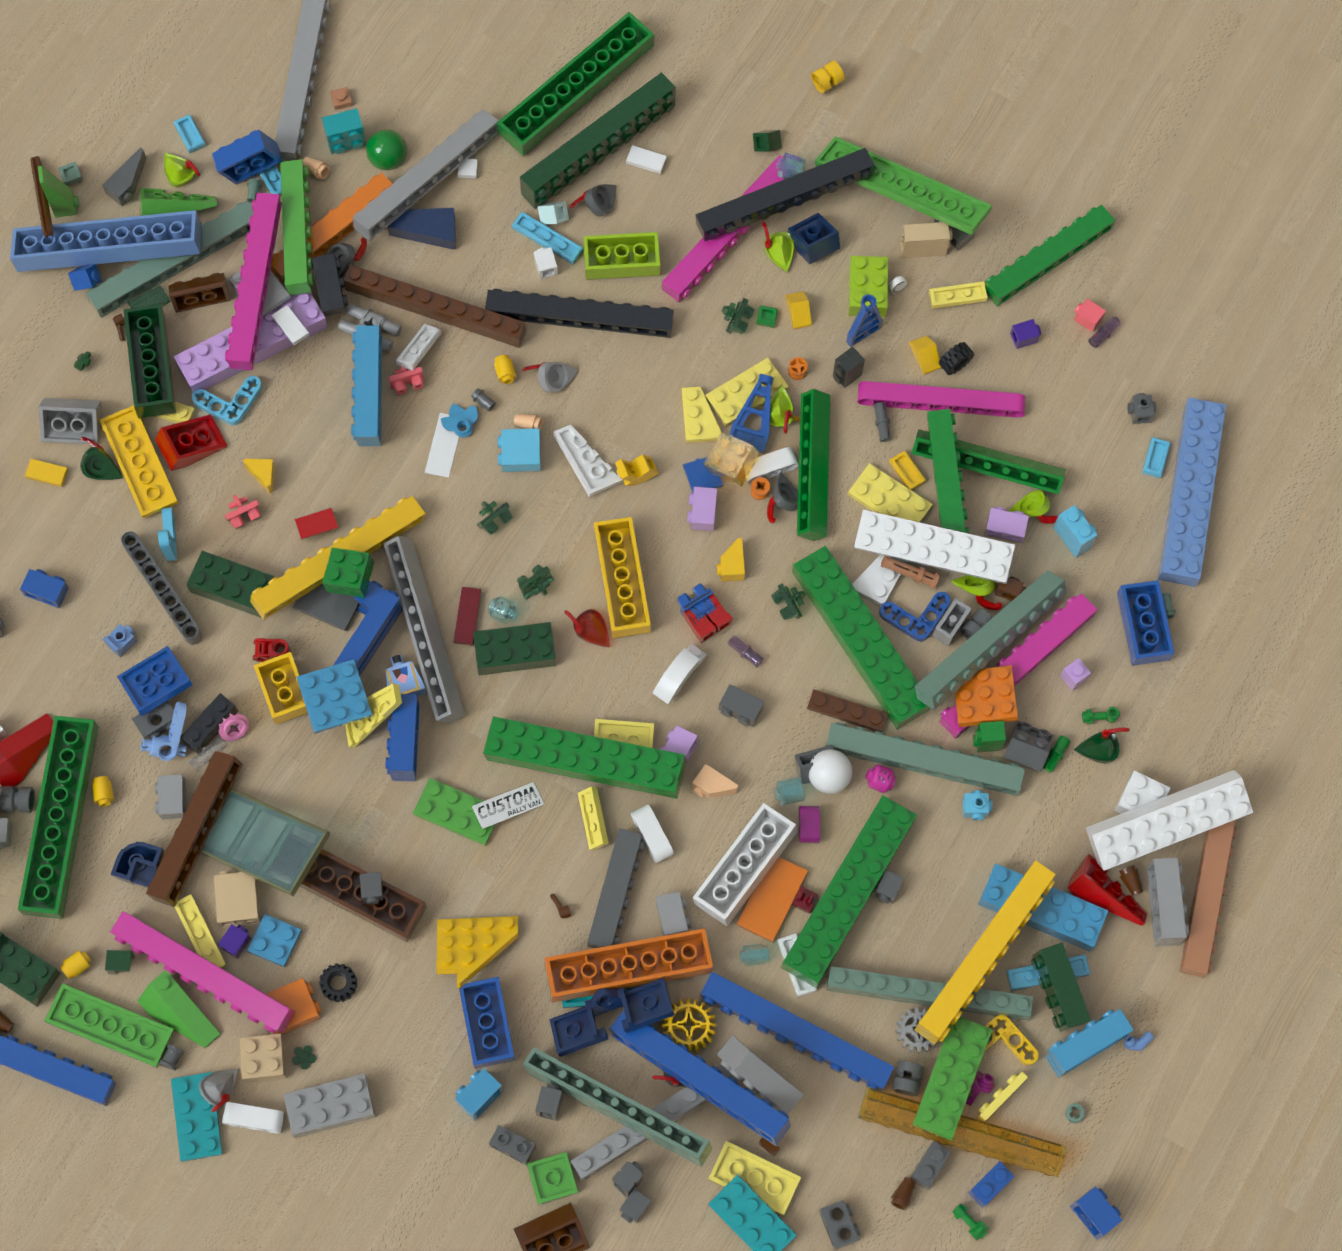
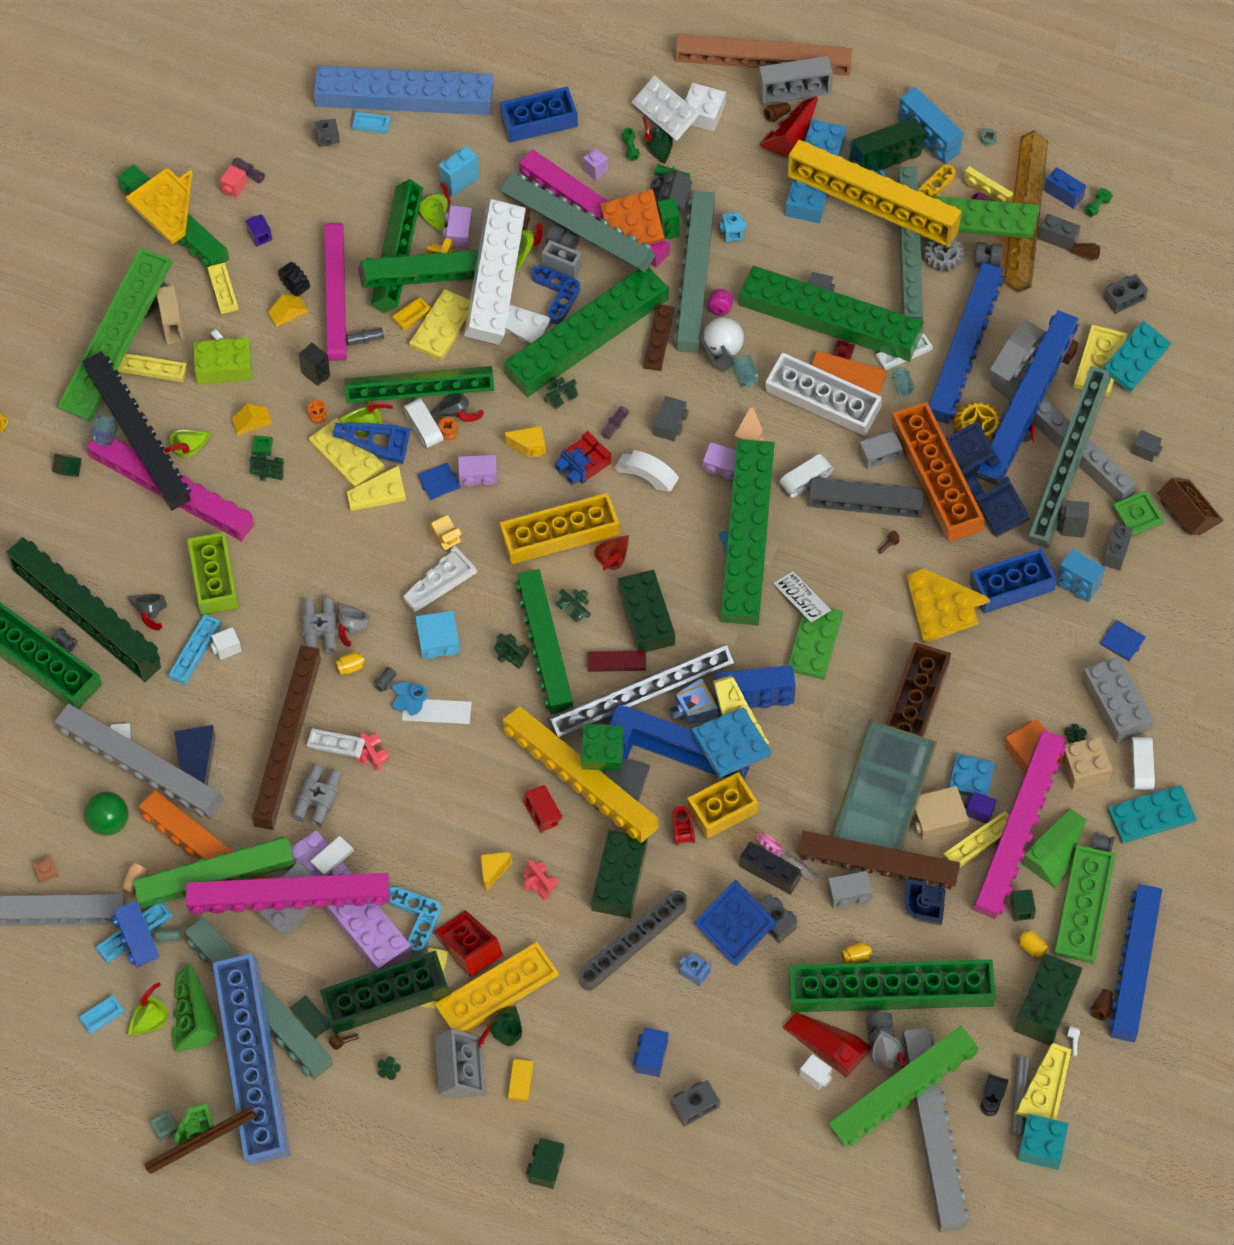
camera: 95 degrees left, 10 degrees down
(85, 277) = (292, 1077): blue brick -> none
(124, 181) = (168, 1065): dark grey slope -> none
(167, 536) = (591, 937): medium azure beam -> none
(172, 739) = (797, 897): light blue piece -> none
(199, 292) = (294, 962): reddish brown slope -> none
(218, 1087) = (1125, 795): light grey piece -> none
(330, 284) = (291, 825): black brick -> none
(344, 131) = (93, 849): teal brick -> none
(347, 254) = (241, 832): dark grey piece -> none
(347, 991) = (998, 723): black tyre -> none
(368, 385) = (390, 774): dark azure brick -> none
(371, 887) = (912, 682): dark grey brick -> none
(404, 1130) = (1123, 640): none -> blue piece
(498, 549) = (545, 641): none -> green brick
(502, 610) = (607, 628): clear light blue head -> none
(528, 421) = (405, 633): light nougat cone -> none
(545, 339) = (326, 620): none -> light grey pin
(553, 213) = (168, 644): light aqua panel -> none
(573, 126) = (64, 640): none -> dark grey bush
(581, 313) = (280, 605): black brick -> none
(593, 818) = (801, 524): light yellow plate -> none
(625, 731) = (716, 508): light yellow wing -> none
(628, 1178) = (1126, 449): dark grey brick -> none
(646, 159) = (96, 571): white tile -> none
(731, 459) = (426, 447): clear yellow brick -> none
(809, 824) = (769, 352): magenta beam -> none
(814, 238) = (174, 409): dark blue slope -> none
(866, 322) = (268, 349): blue plate -> none
(870, 224) = (153, 367): none -> light yellow plate
(918, 574) = (514, 309): nougat pin -> none
(980, 506) = (447, 247): none -> yellow panel
(1058, 242) = (164, 203): none -> yellow wing
(1096, 1212) = (1072, 110): blue brick -> none
(1139, 755) = (665, 108): none -> white plate
(1169, 820) = (725, 76): white brick -> none

